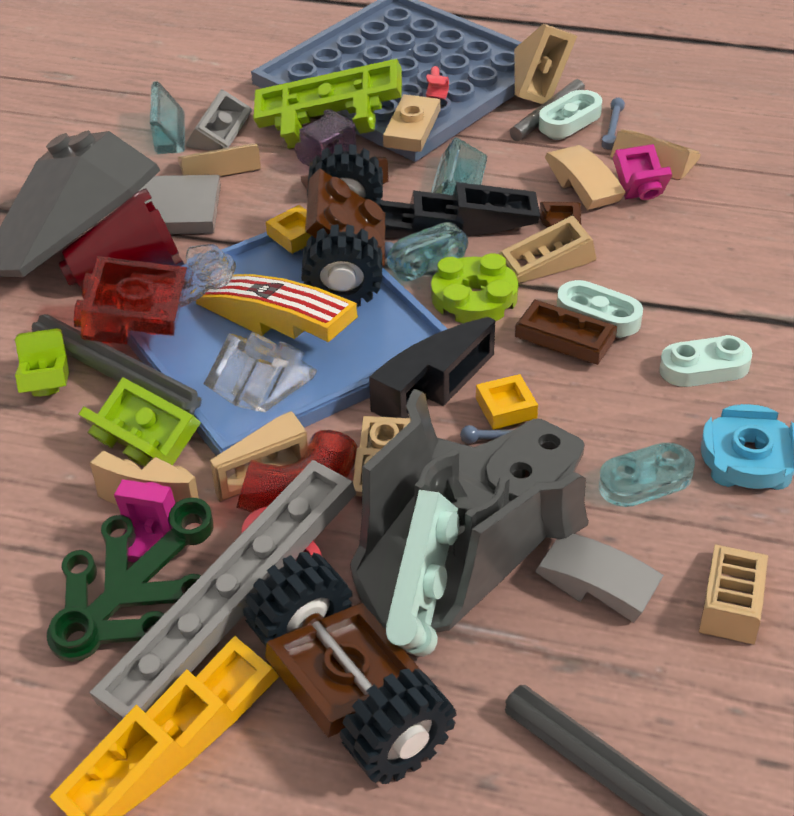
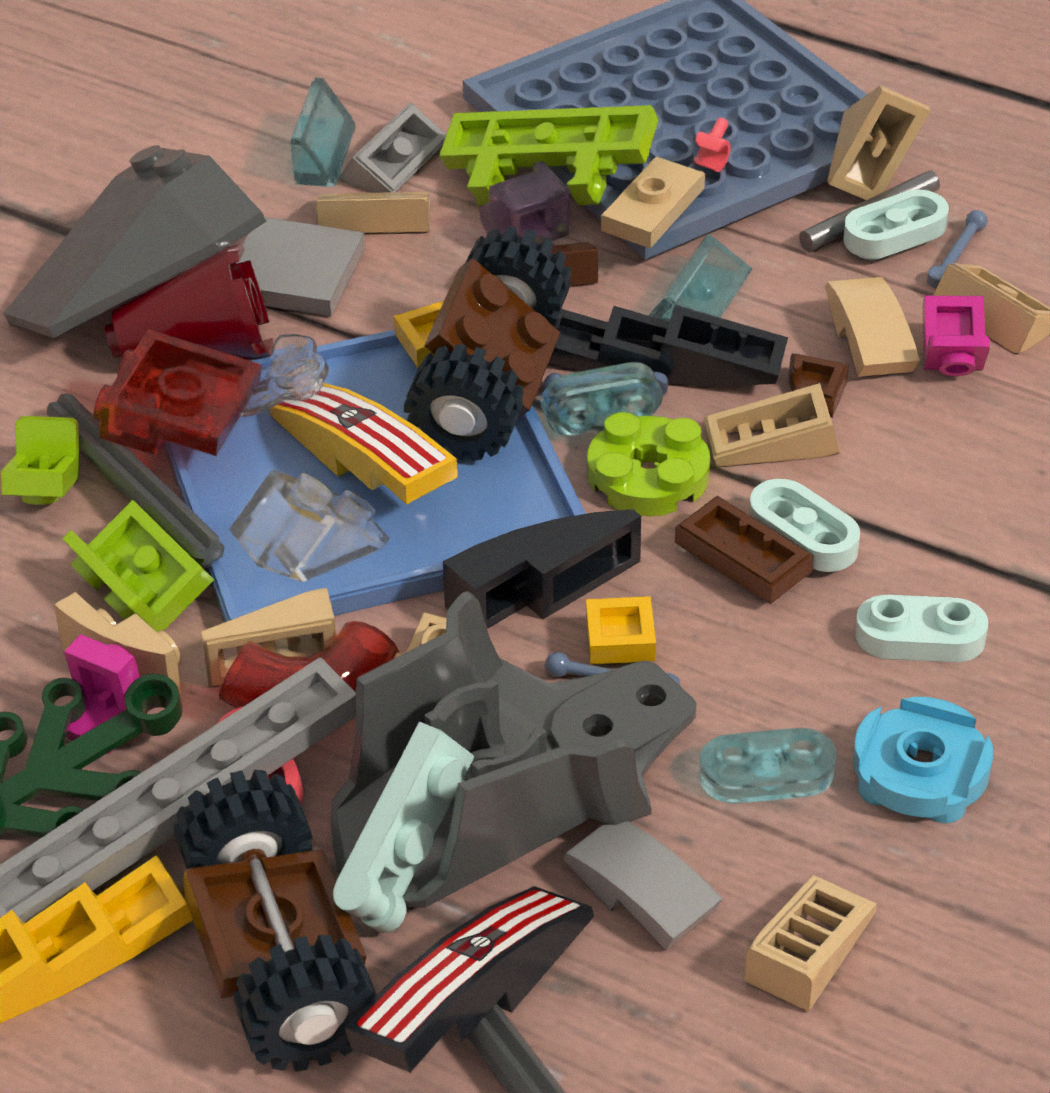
camera: 15 degrees right, 0 degrees up
(507, 678) = (465, 974): none -> slope

